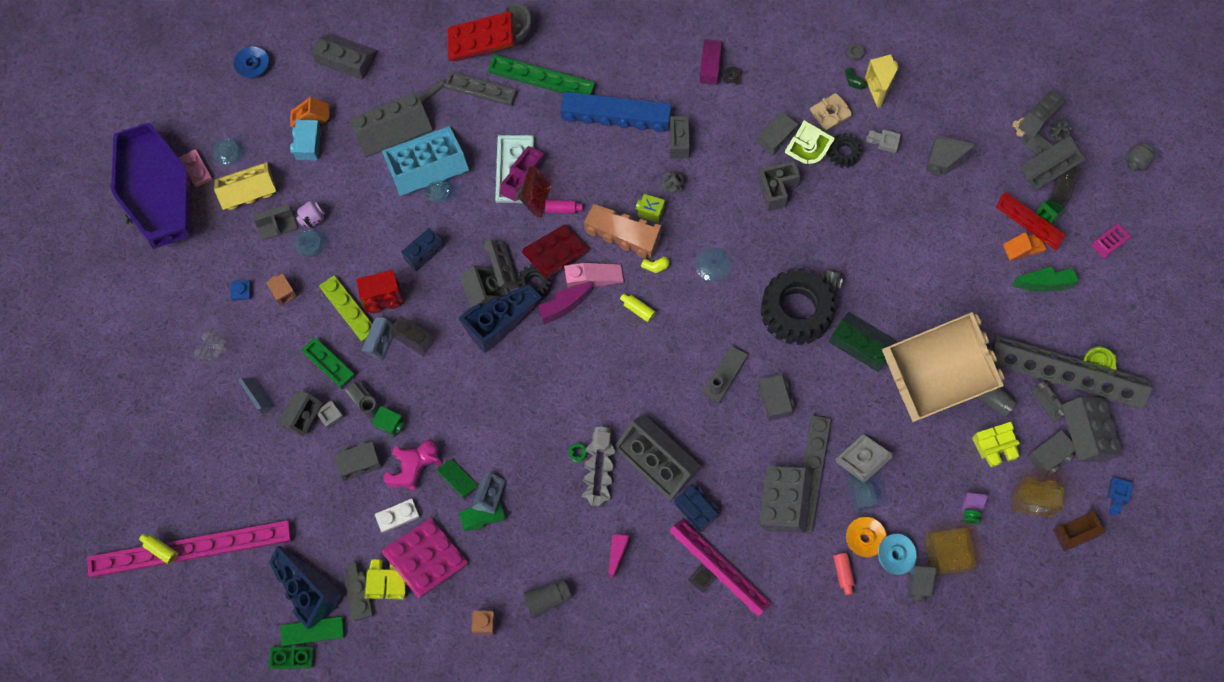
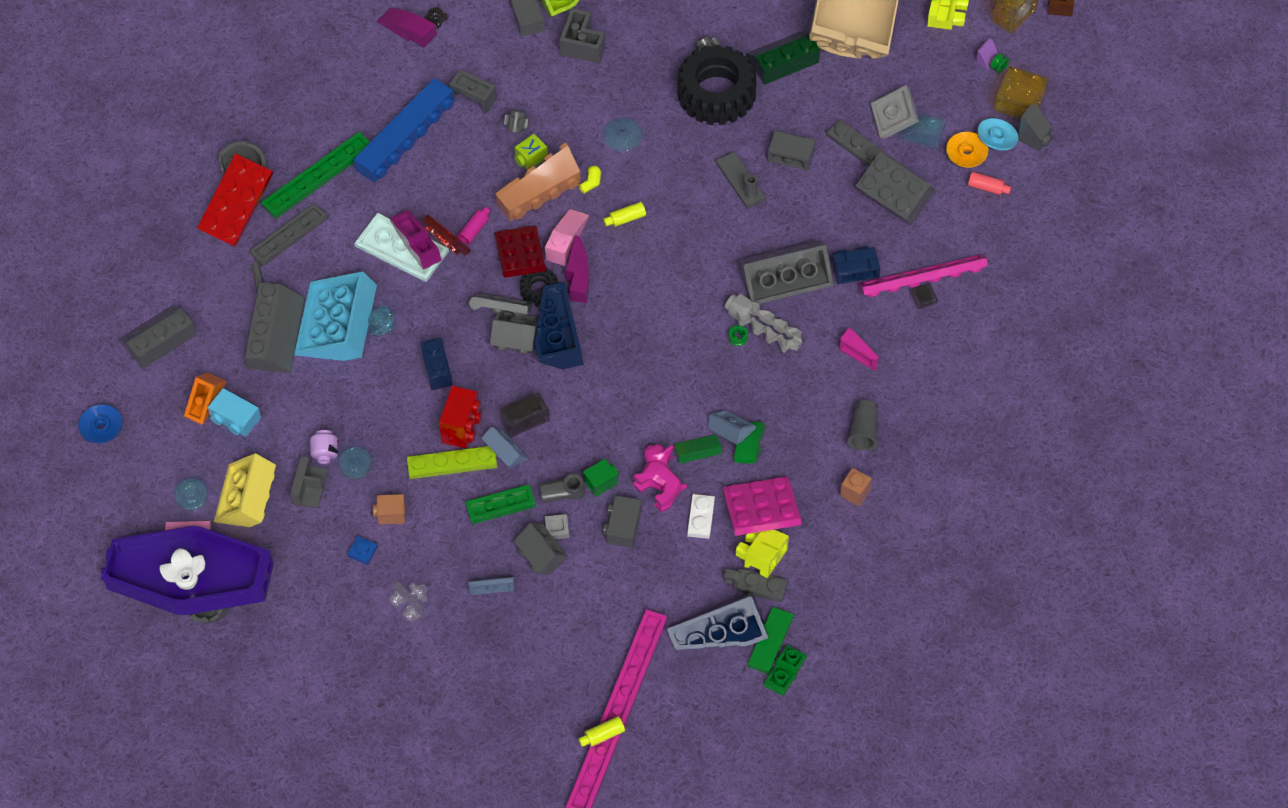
camera: 60 degrees left, 10 degrees down
(143, 178) = (183, 565): none -> white plate

